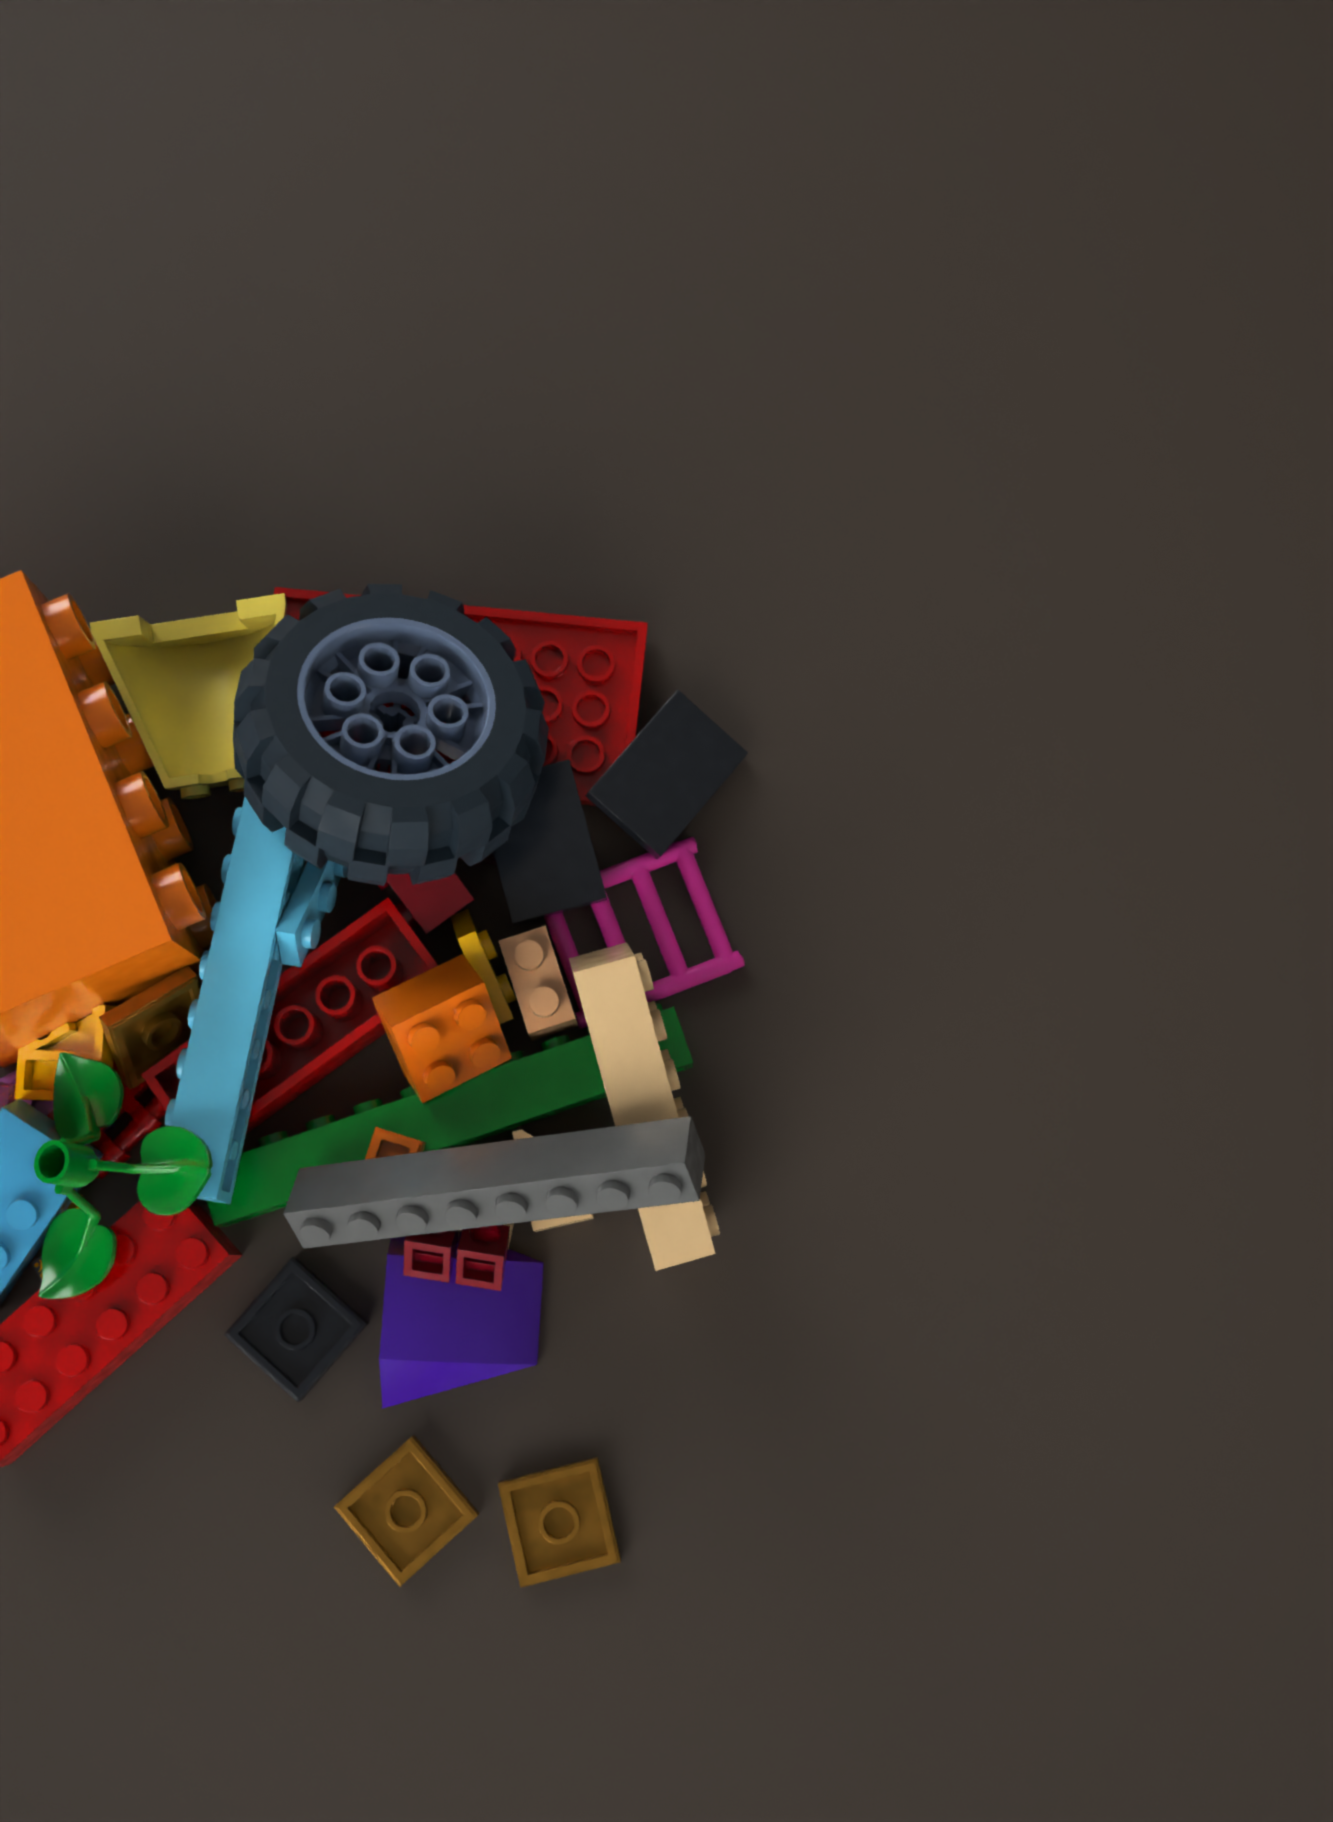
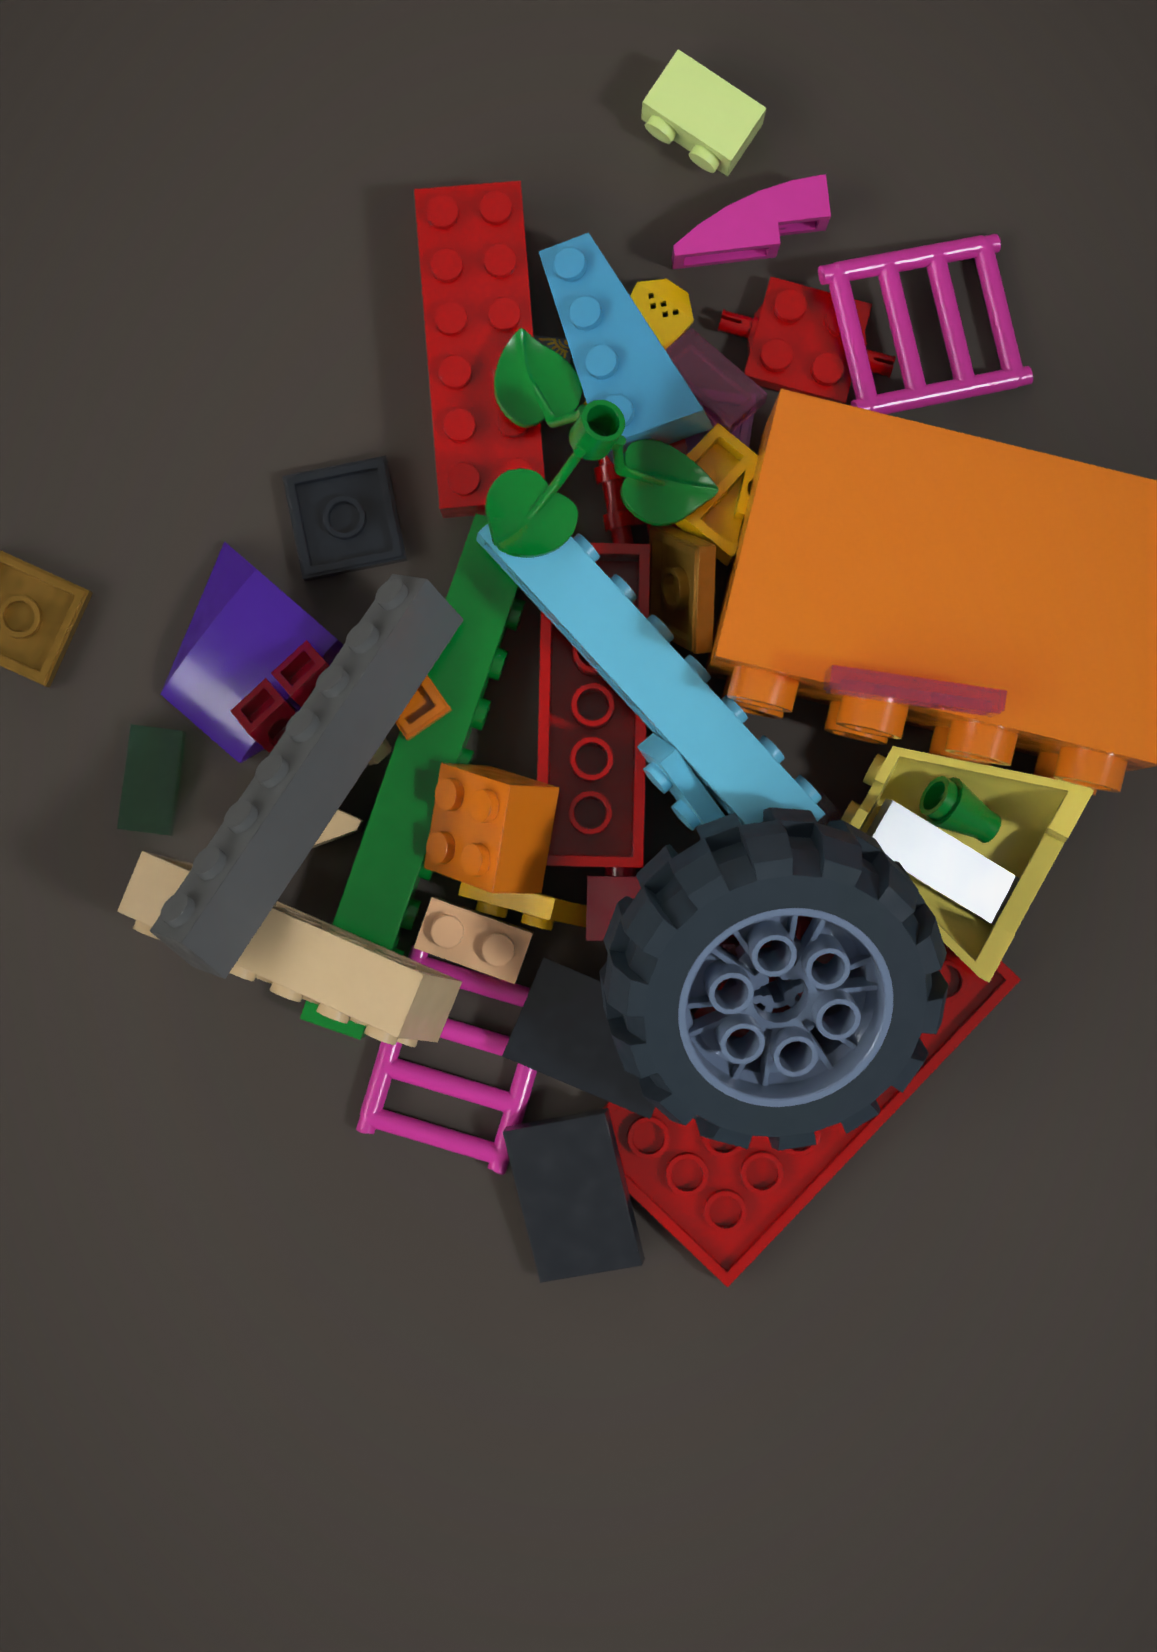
camera: 135 degrees right, 10 degrees up
(88, 773) = (914, 691): none -> clear pink tile
(179, 714) = (957, 809): none -> green cone
(221, 665) = (943, 862): none -> tile
(406, 1510) = (127, 501): pearl gold tile -> none
(606, 1319) = (151, 780): none -> clear green tile

